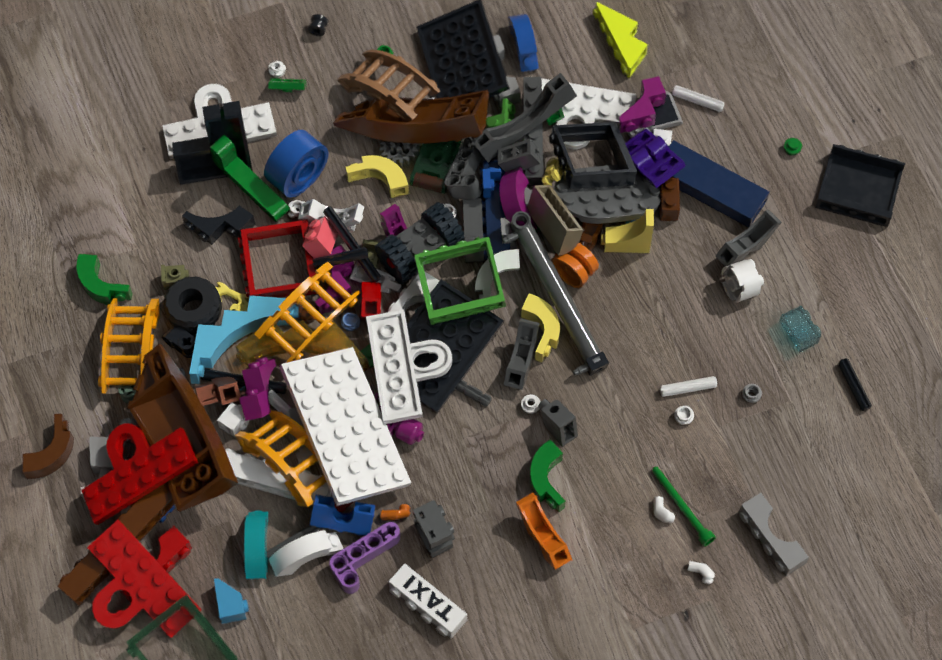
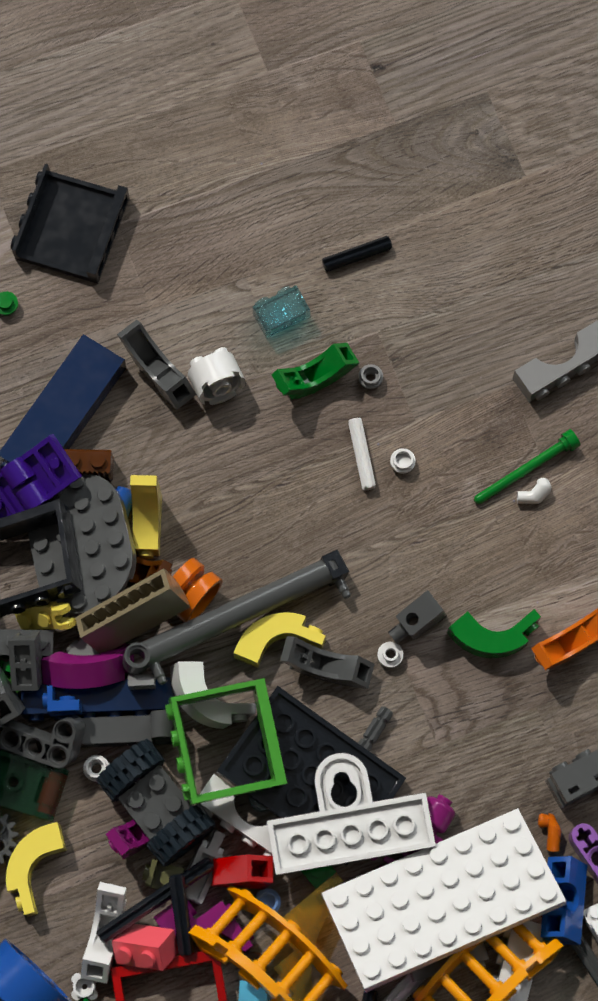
camera: 90 degrees left, 10 degrees up
(747, 349) = (316, 374): none -> green arch

